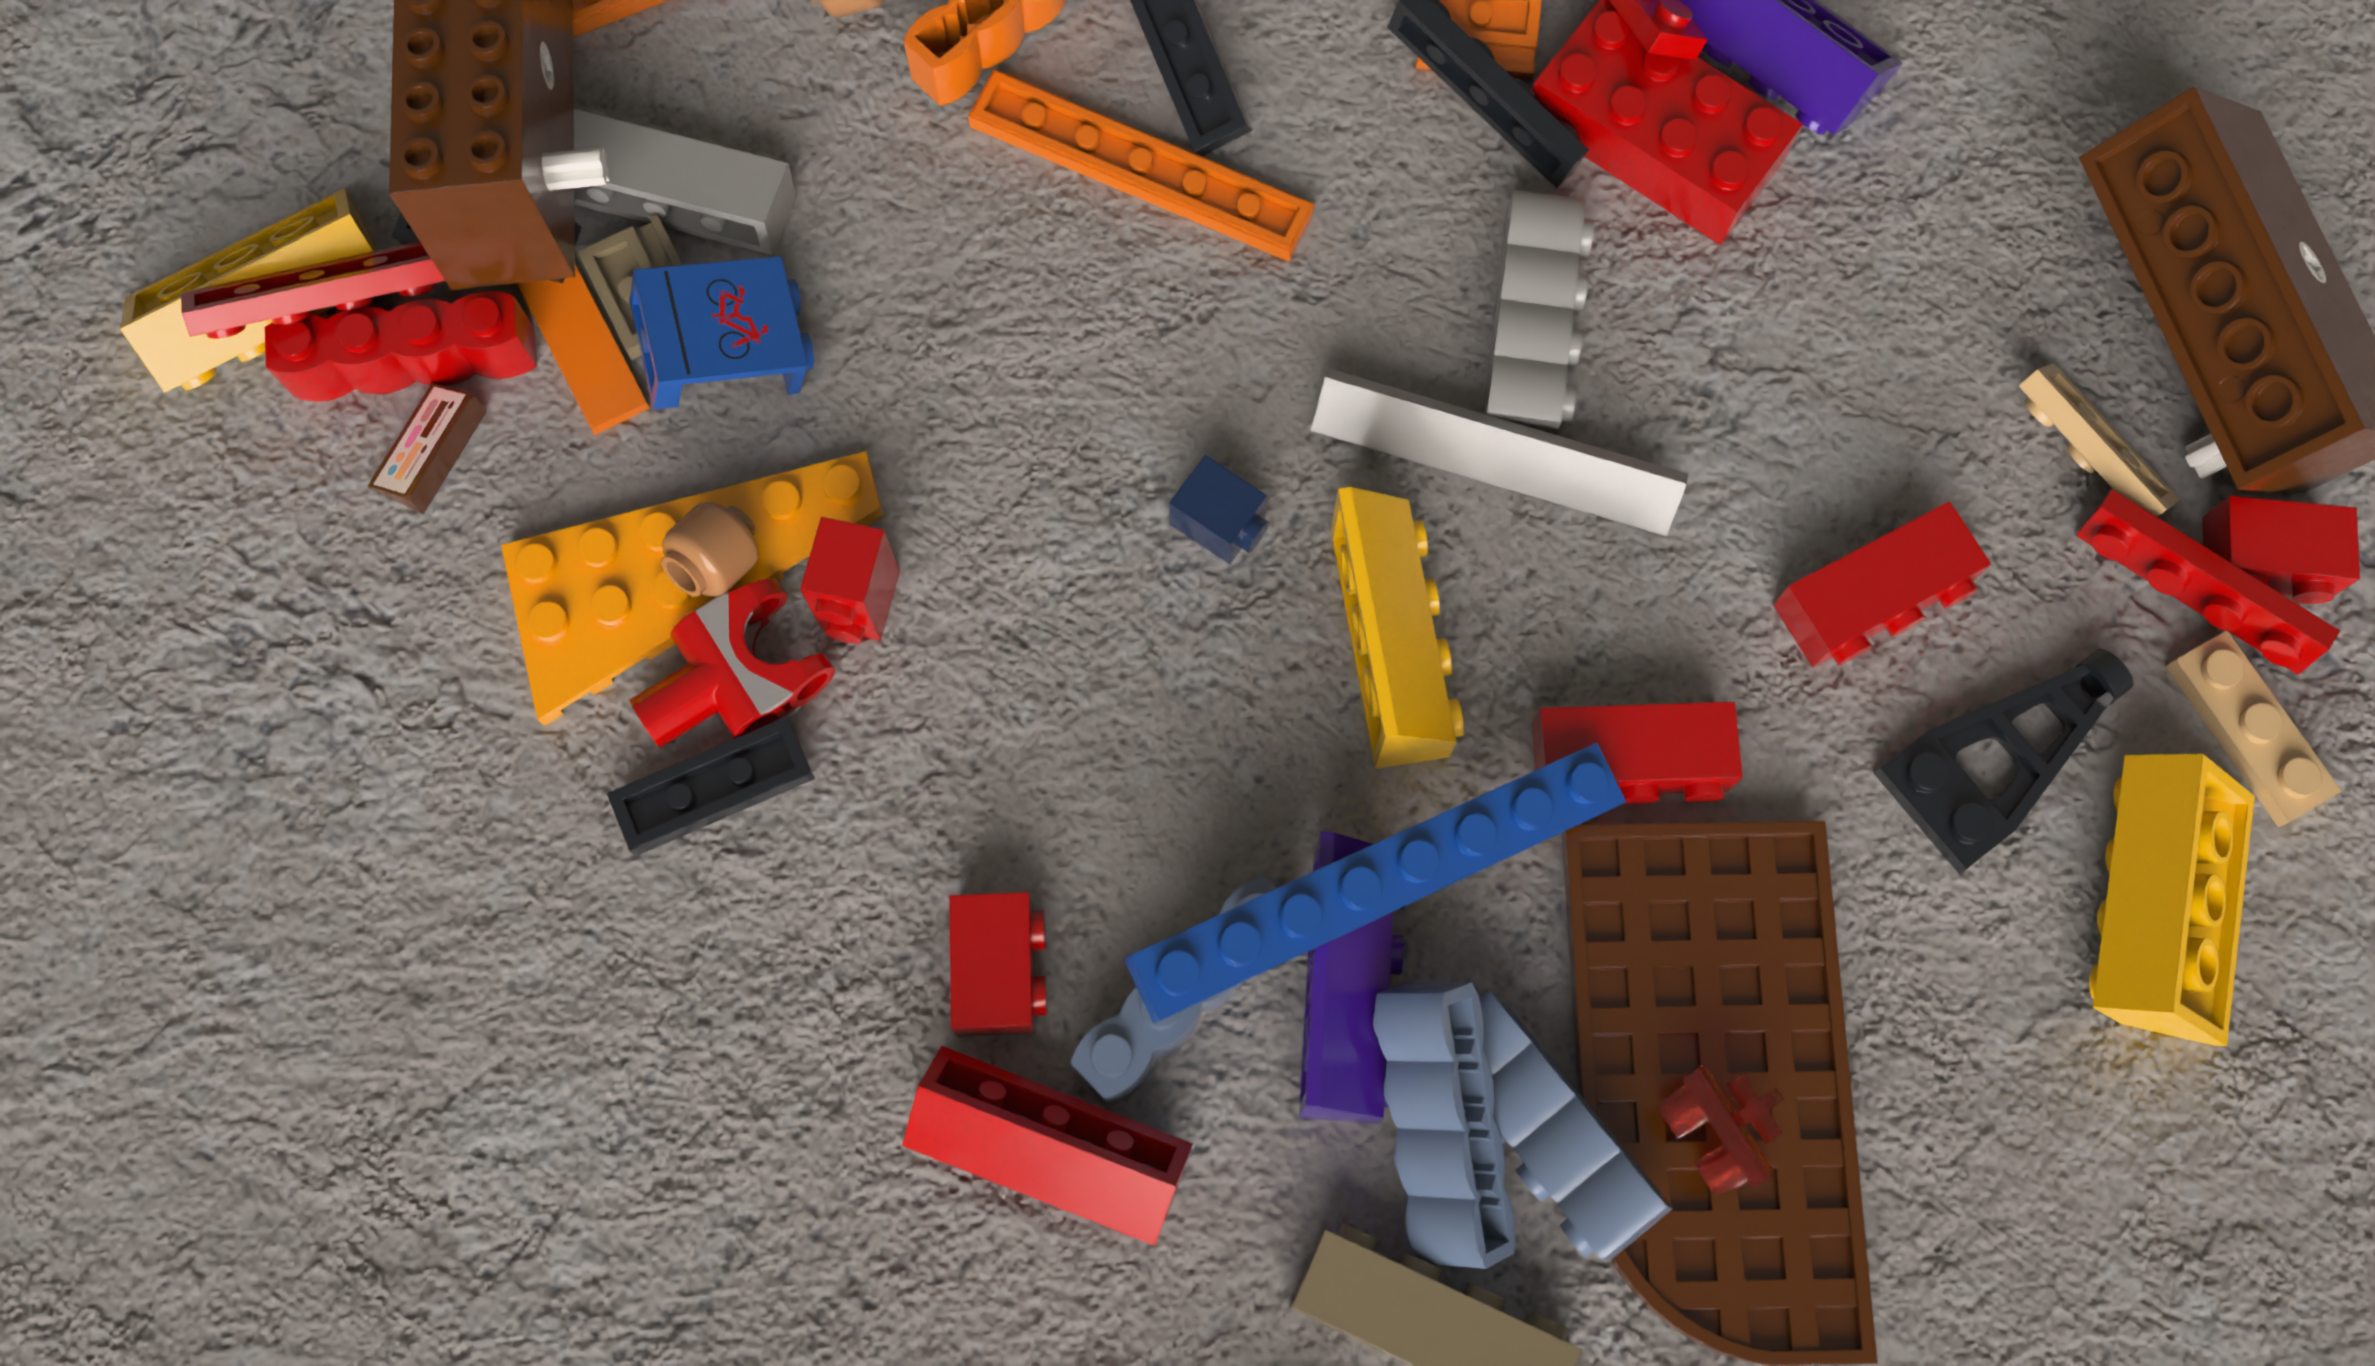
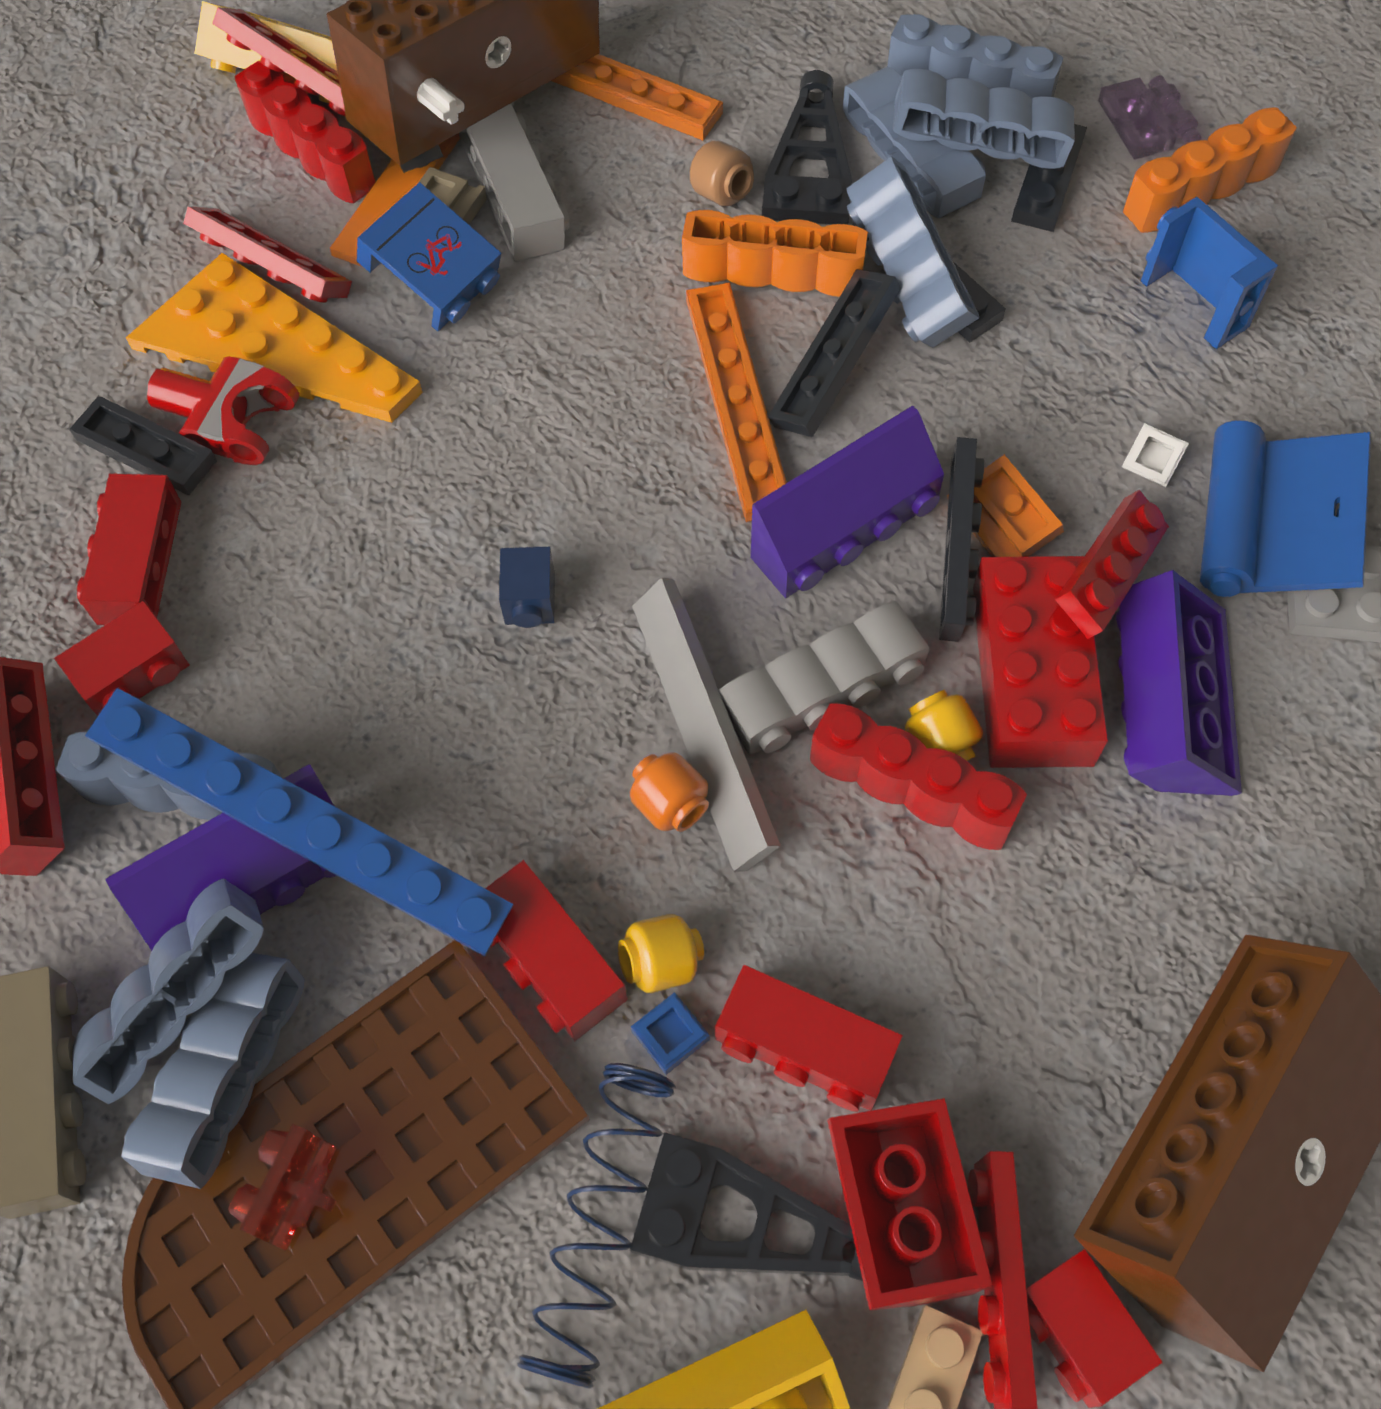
camera: 55 degrees right, 10 degrees down
(428, 447) = (259, 187): slope -> none
(527, 504) = (259, 249): none -> plate
(709, 549) = (280, 337): medium nougat head -> none
(848, 877) = (129, 546): none -> red brick
(850, 580) = (315, 418): red brick -> none
(1375, 157) = (846, 503): none -> dark purple slope
(1393, 629) = (513, 732): yellow slope -> none
(1555, 532) = (669, 791): none -> orange head
(1669, 252) = (945, 724): none -> yellow head
(1700, 309) = (928, 781): none -> red brick
(1711, 653) = (660, 953): none -> yellow head
(1784, 701) = (670, 1033): none -> blue tile
(2031, 1004) = (625, 1077): none -> dark blue piece
(2094, 440) = (1055, 1127): tan plate -> none
(2105, 599) = (909, 1205): none -> red slope

